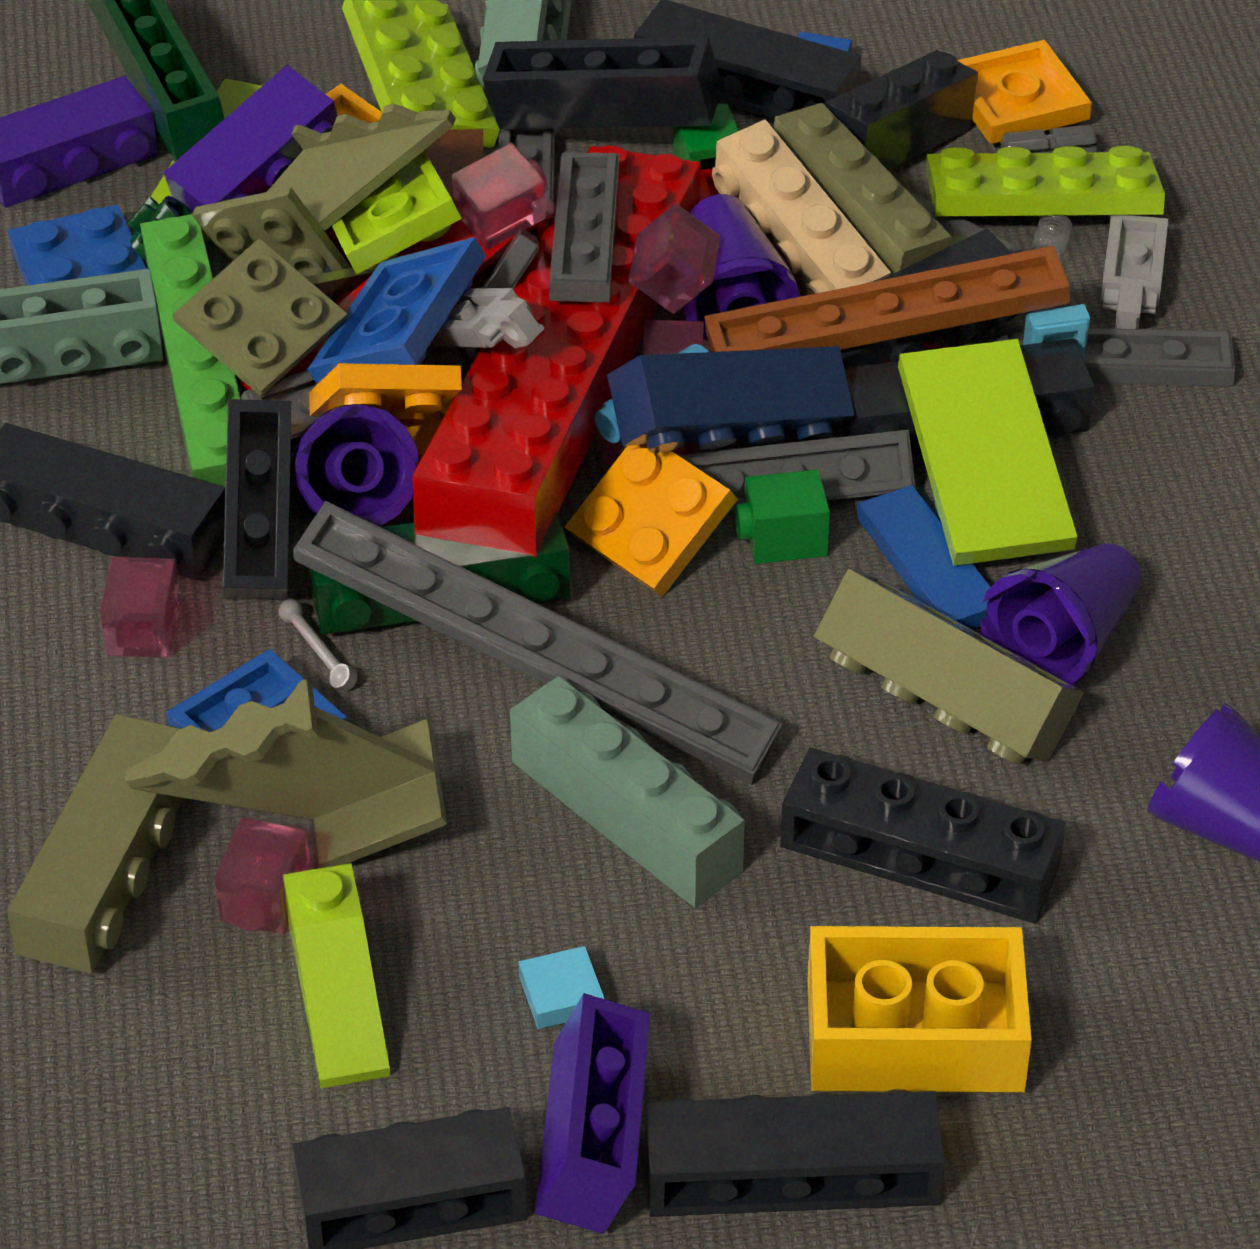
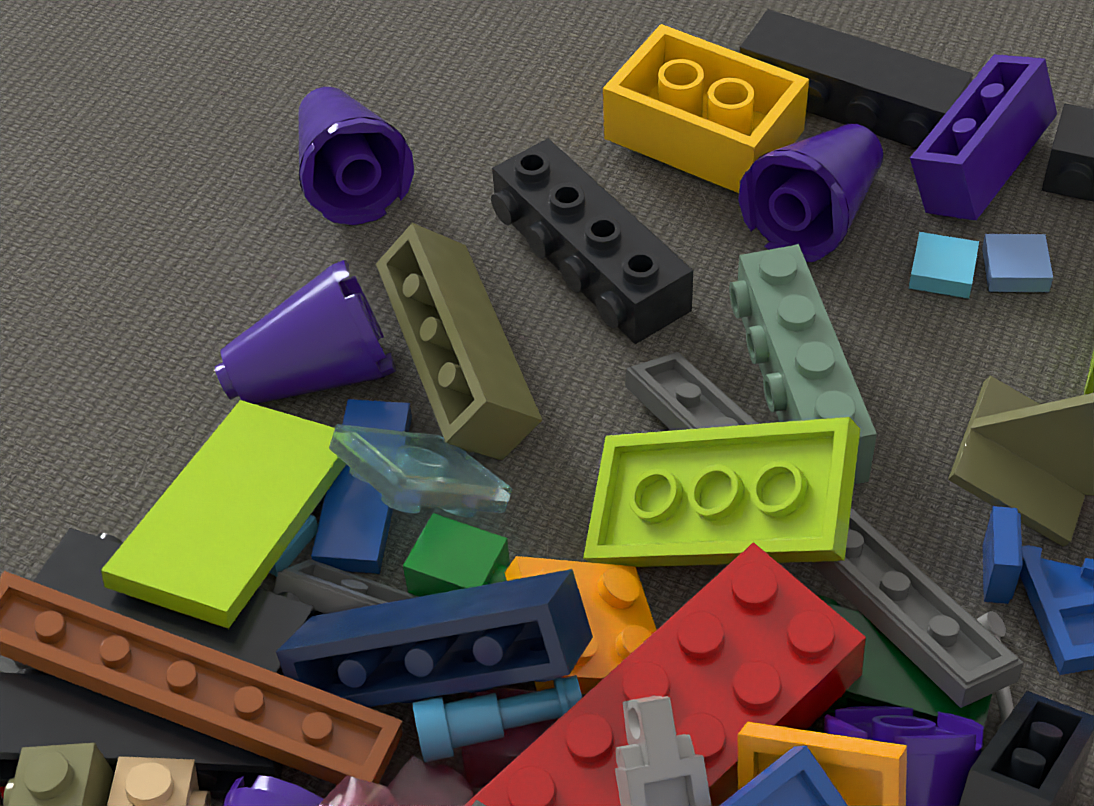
camera: 145 degrees left, 5 degrees up
(357, 700) = (1002, 555): none -> blue tile
(488, 1023) = (1017, 263): none -> medium blue tile
(605, 600) = (722, 488): none -> lime plate
(732, 969) = (811, 189): none -> dark purple cone
(868, 524) = (419, 471): none -> clear light blue plate

